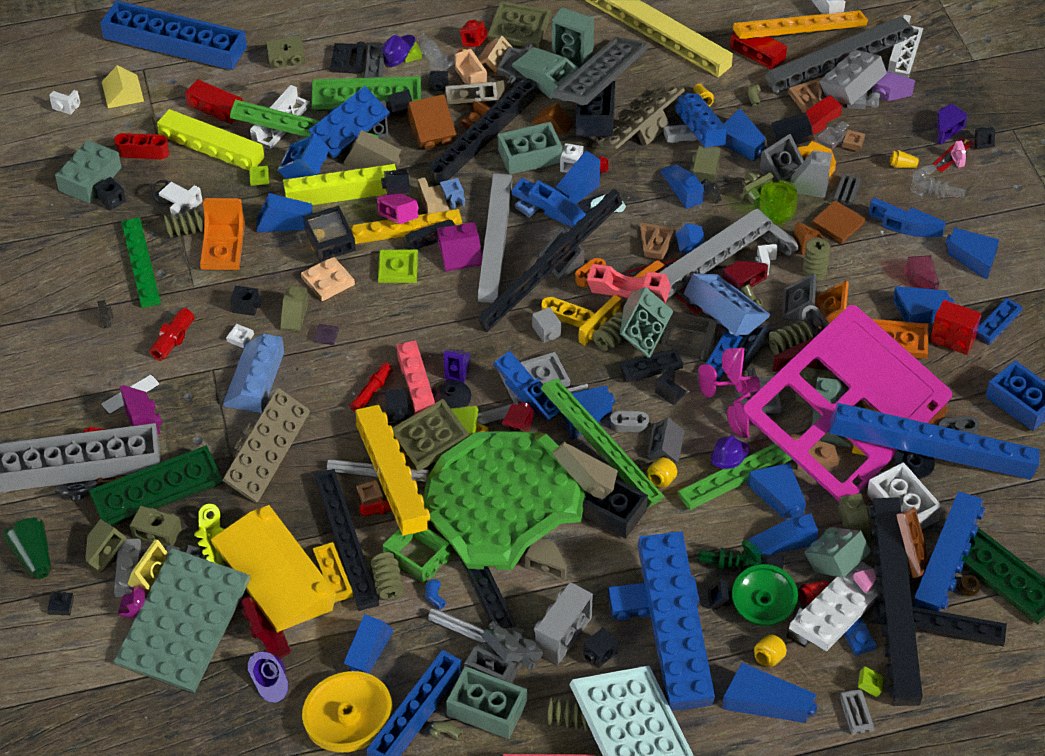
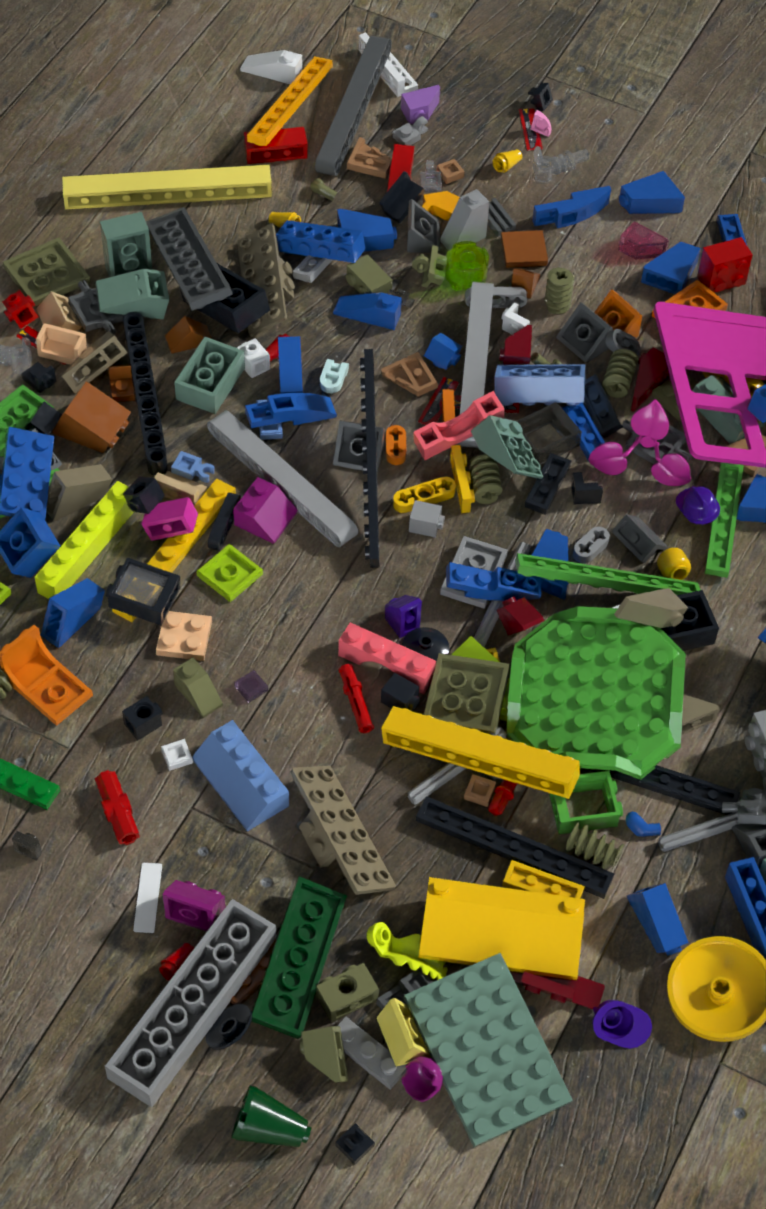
camera: 50 degrees left, 5 degrees up
(853, 76) = (391, 115): light grey brick -> none
(949, 122) = (500, 103): dark purple slope -> none

